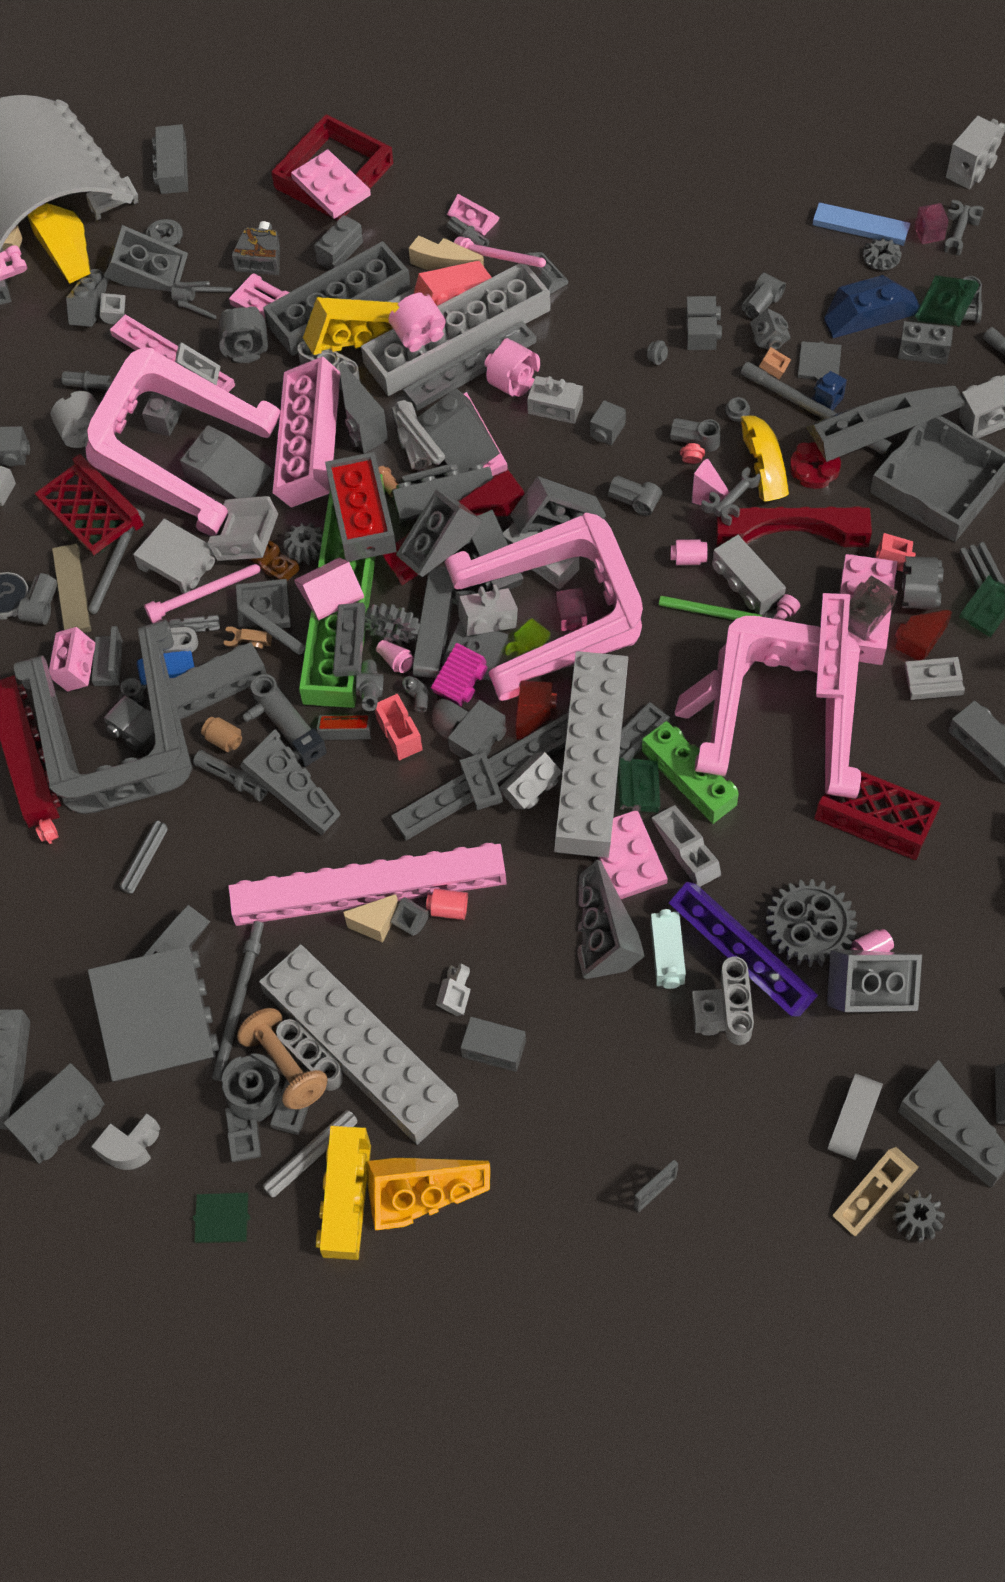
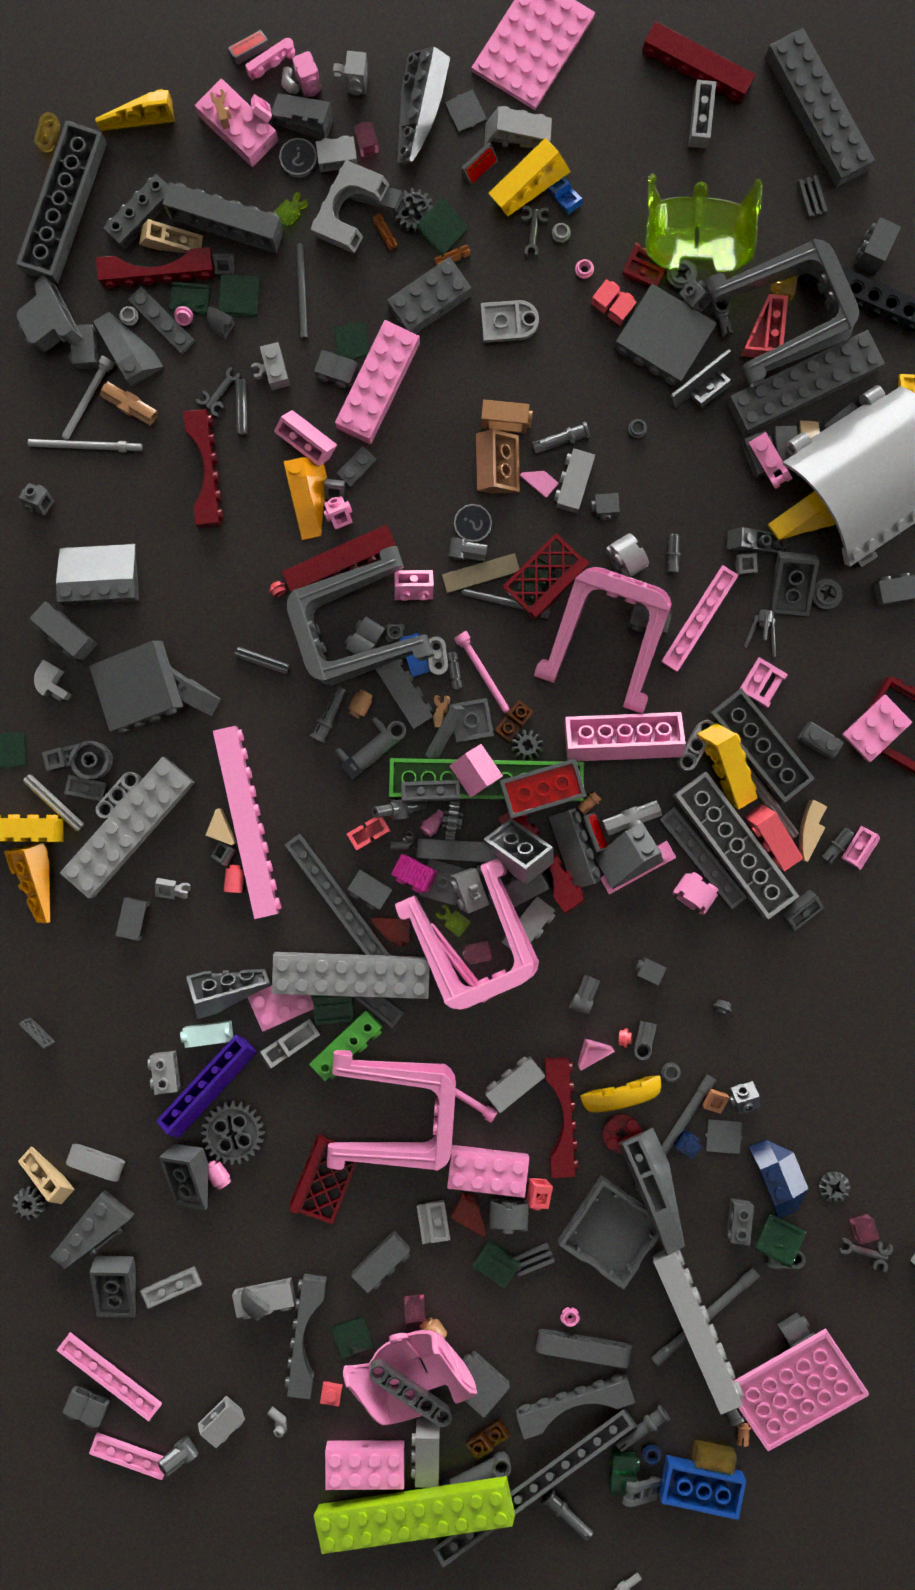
camera: 85 degrees right, 25 degrees up
(107, 659) = (420, 610): dark grey panel -> none
(175, 555) = (509, 648): light grey panel -> none
(197, 363) = (680, 642): light grey slope -> none
(224, 466) = (594, 676): dark grey slope -> none
(242, 334) = (719, 673): dark grey brick -> none
(245, 530) = (533, 699): light grey panel -> none
(251, 950) = (195, 746): dark grey bar -> none
(258, 250) = (812, 675): torso -> none
(283, 776) = (323, 753): dark grey wing -> none
(303, 1087) = (108, 778): medium nougat hose -> none
(344, 727) = (373, 790): slope -> none
(364, 414) = (639, 779): dark grey slope -> none
(417, 321) = (721, 816): bright pink brick -> none
(420, 436) = (623, 826): light grey axle -> none
(447, 717) = (381, 866): dark grey brick -> none
(481, 781) = (325, 896): dark grey plate -> none
(500, 254) = (823, 844): bright pink piece -> none
(530, 780) = (329, 931): light grey brick -> none
(552, 504) = (559, 938): dark grey wedge -> none
(555, 399) = (672, 928): light grey brick -> none
(689, 552) = (533, 1038): bright pink brick -> none
(698, 695) = (405, 1050): bright pink slope -> none
(702, 323) = (753, 1041): dark grey piece -> none
(703, 608) = (486, 1055): bright green bar -> none
(725, 506) = (567, 1064): dark grey bar -> none
(740, 988) = (149, 1084): light grey beam -> none
(765, 292) = (786, 1092): dark grey piece -> none
(833, 646) = (432, 1152): bright pink plate -> none
(861, 223) = (865, 1170): medium blue tile -> none
(870, 606) = (474, 1176): clear smoke brick -> none

